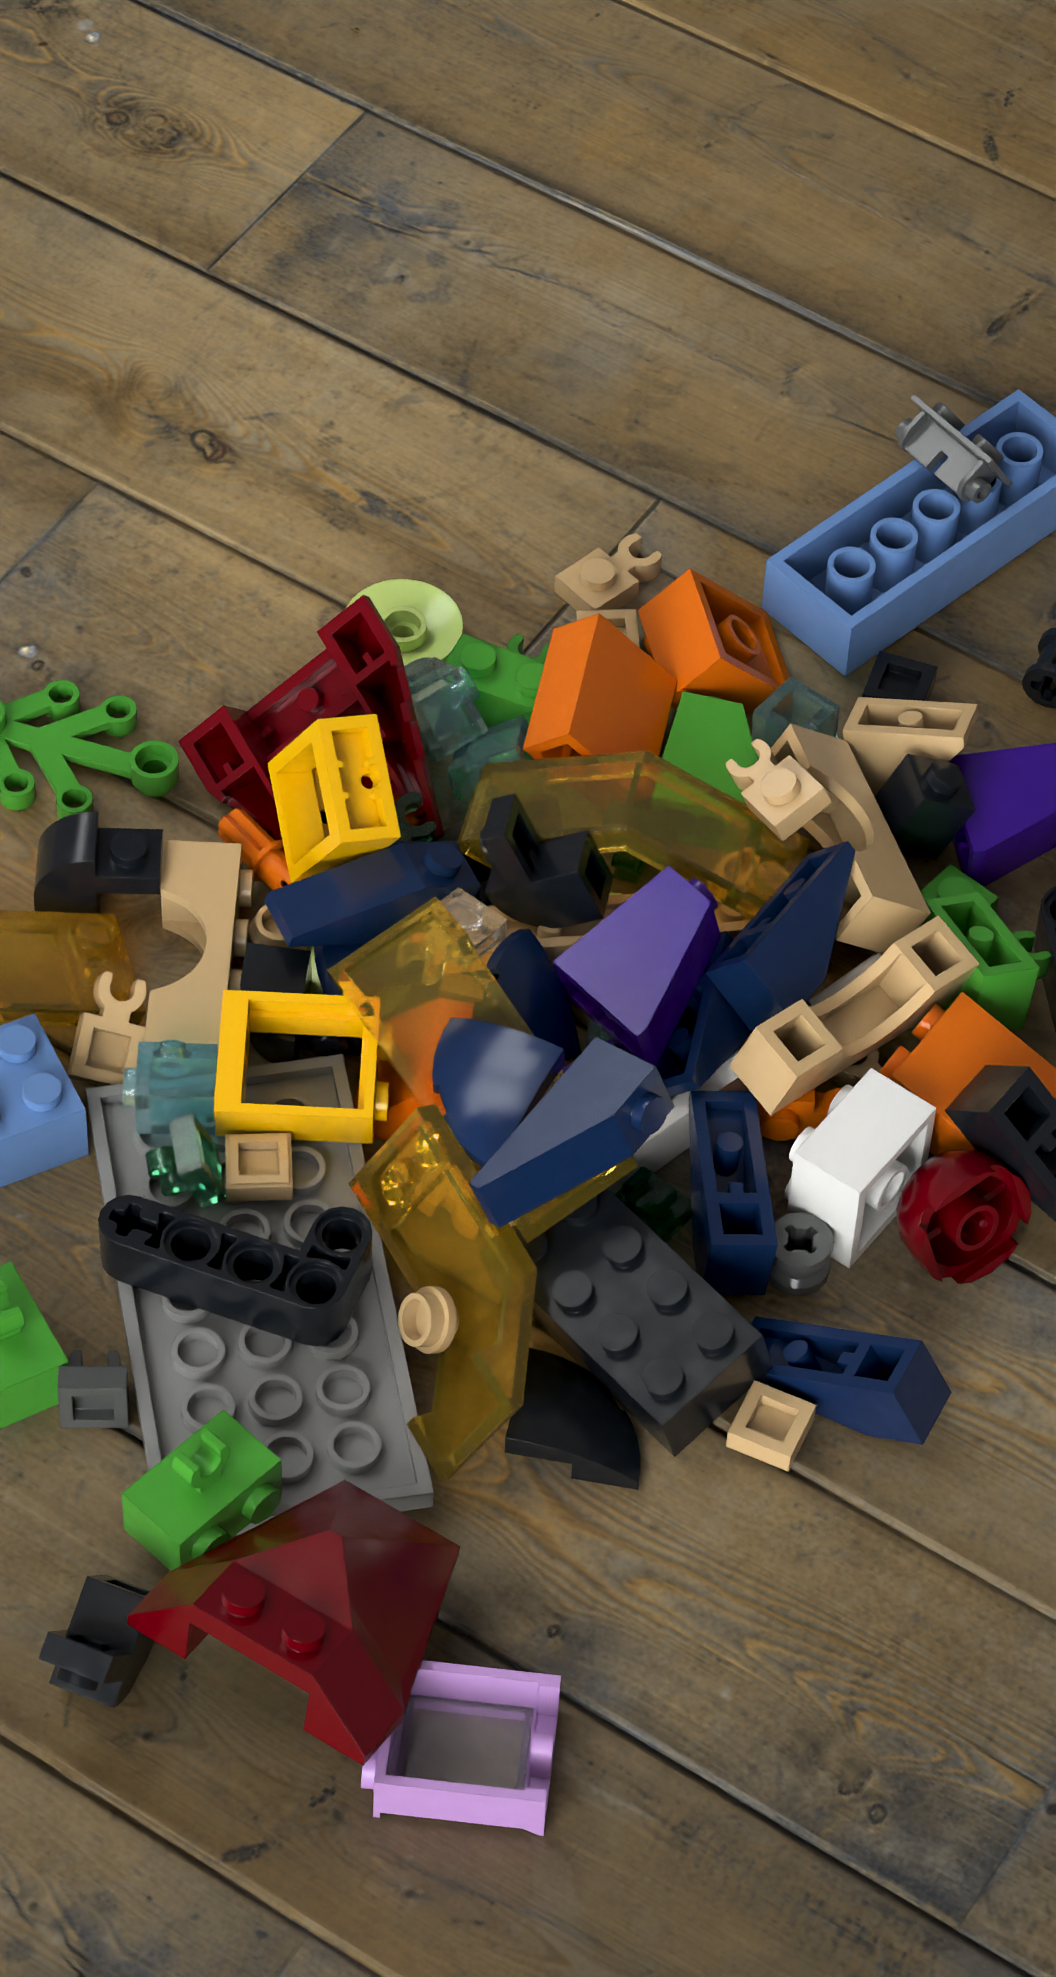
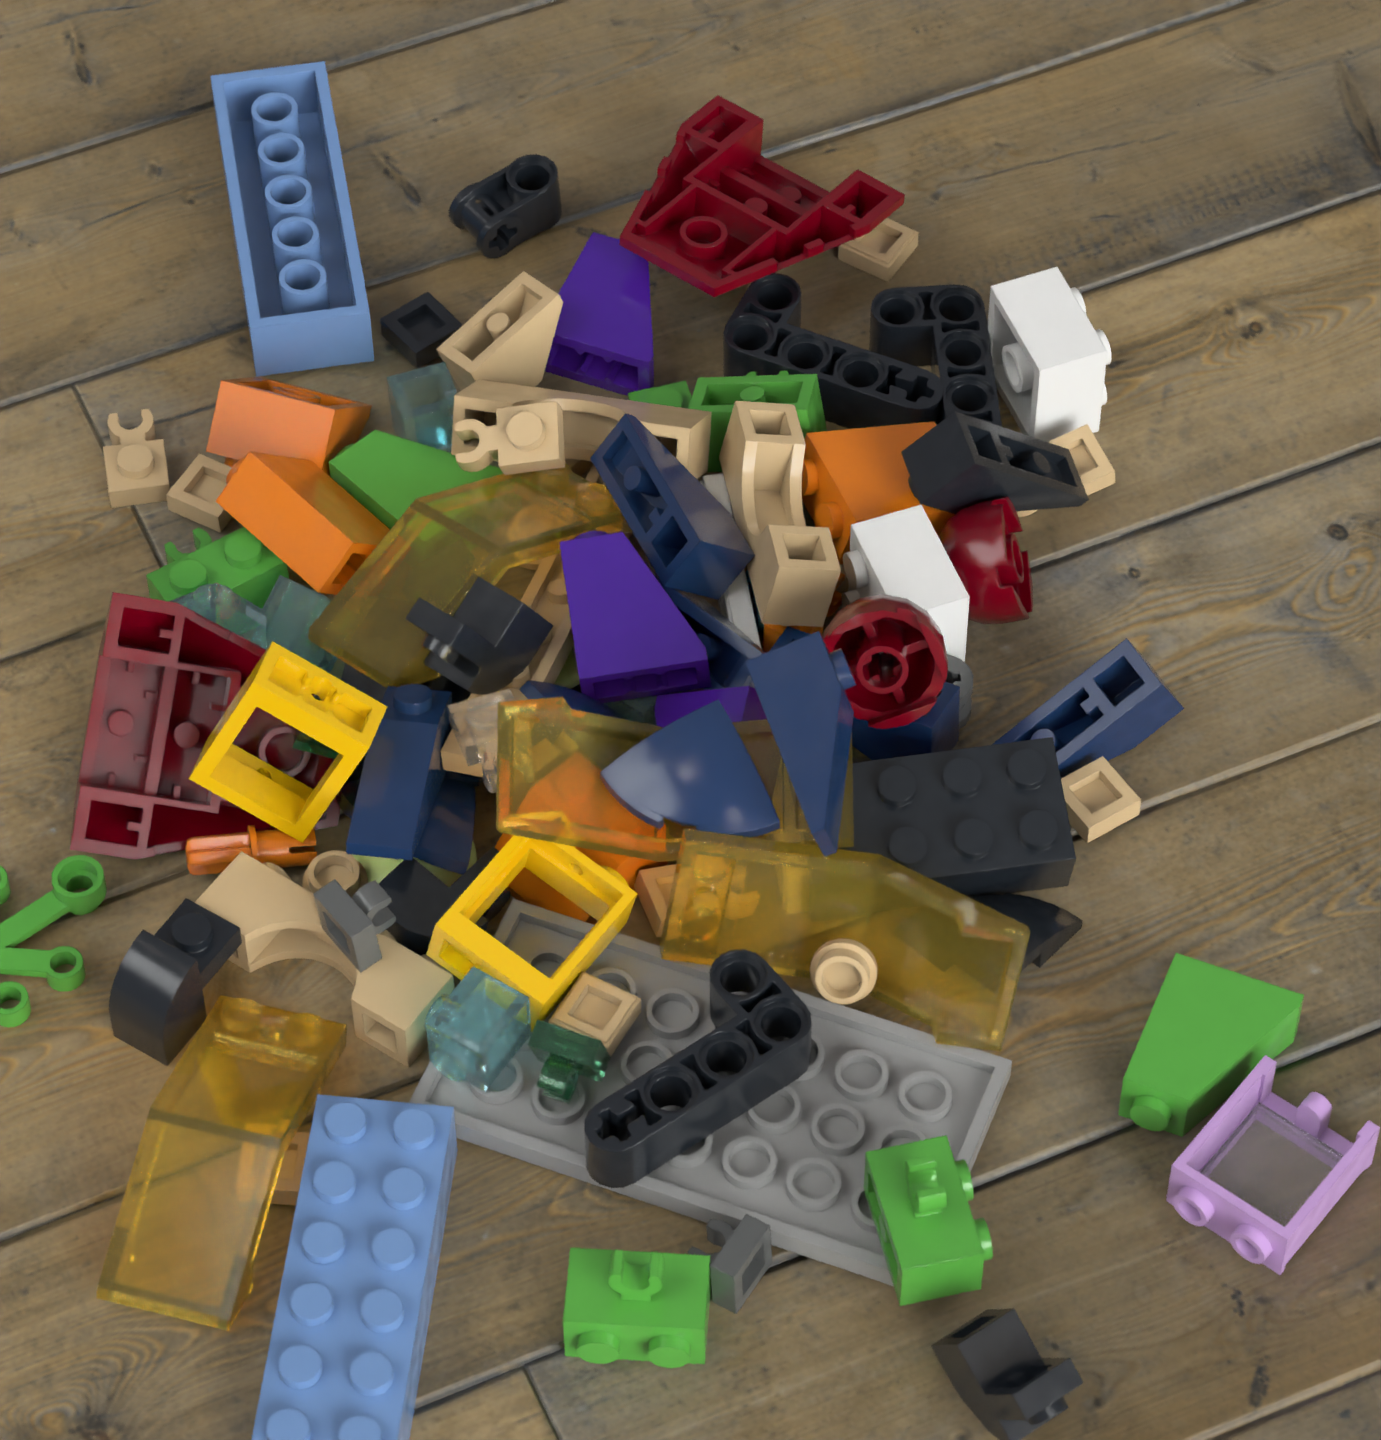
camera: 55 degrees left, 0 degrees up
(107, 1041) = (367, 1063): tan plate -> none
(207, 944) = (355, 920): none -> dark grey tile
(324, 1598) = (1089, 1179): dark red wedge -> none
(418, 616) = (59, 612): yellowish green dish -> none
(560, 1622) = (1203, 1043): none -> bright green slope
(731, 1158) = (893, 657): none -> dark red cylinder
(925, 805) = (577, 359): black brick -> none
(969, 463) = (229, 142): dark grey hinge -> none

